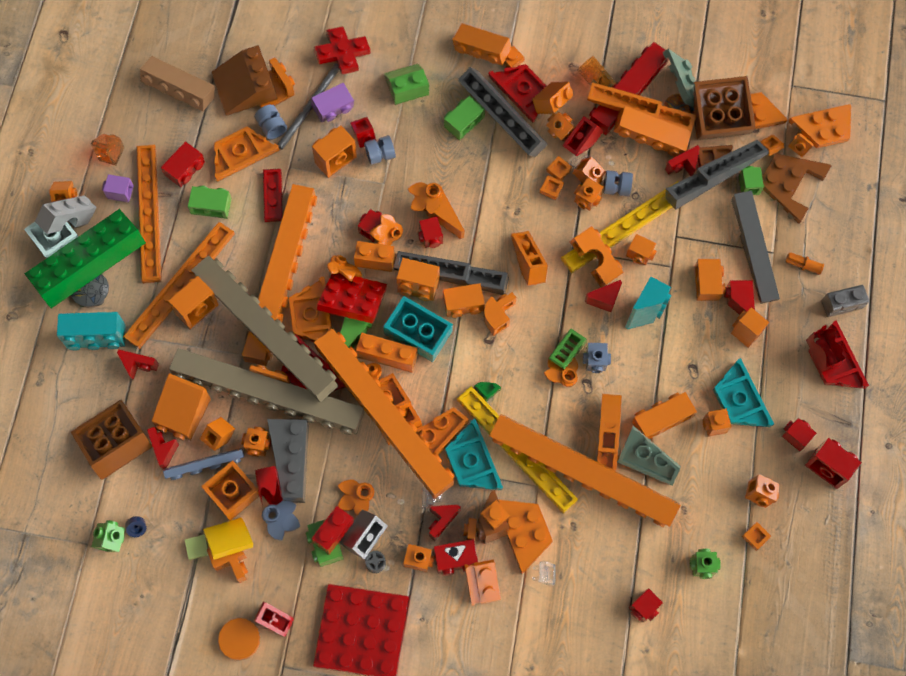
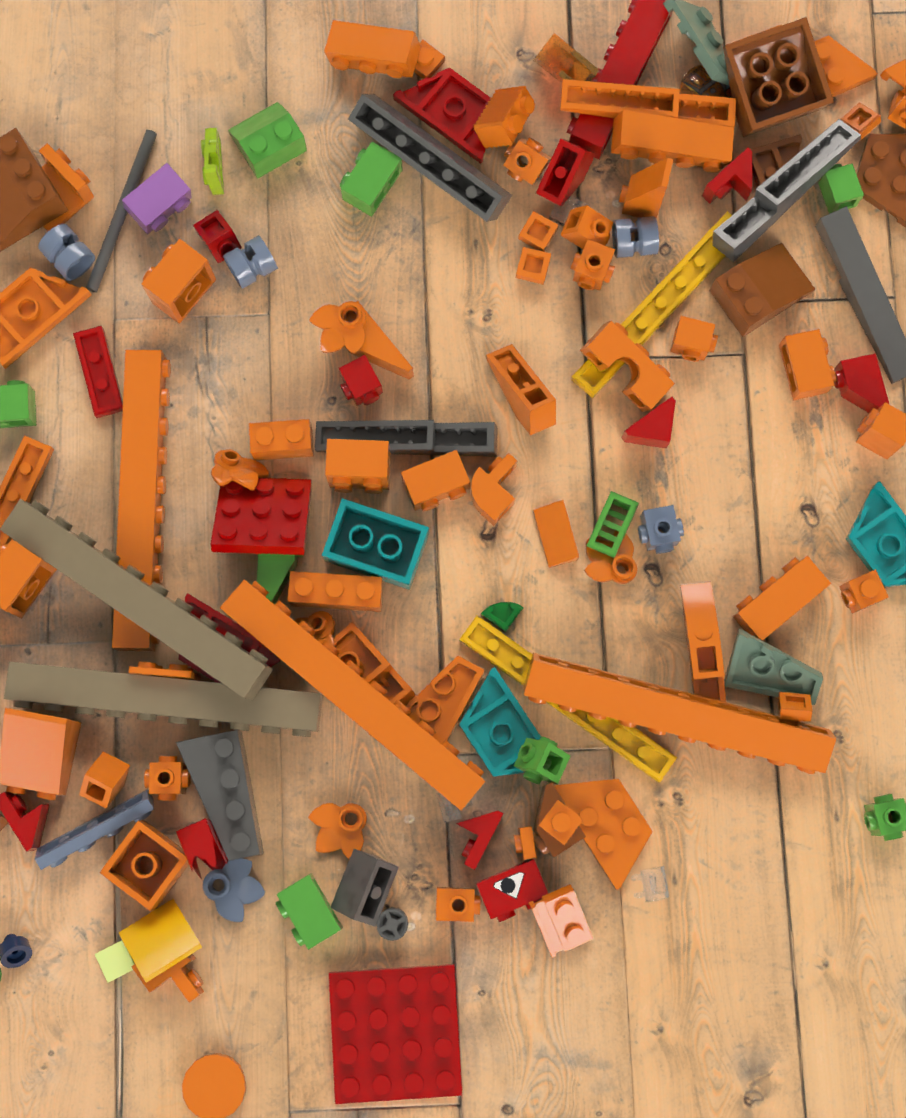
camera: 10 degrees left, 10 degrees up
(273, 619) = (259, 1047): slope -> none
(306, 319) = (190, 549): orange wing -> none
(332, 530) = (317, 898): red brick -> none
(342, 50) = (152, 105): red plate -> none
(368, 222) = (265, 388): red brick -> none
(371, 88) = (212, 157): none -> lime wing
(385, 230) = (292, 396): orange plate -> none
(491, 478) = (541, 760): none -> bright green brick
(531, 348) = (556, 534): none -> orange slope
(630, 156) = (646, 190): none -> orange slope
(646, 606) = (812, 901): red brick -> none
(649, 304) = (726, 427): teal slope -> none
(658, 482) = (794, 707): none -> orange plate
(689, 229) = (760, 288): none -> dark orange slope

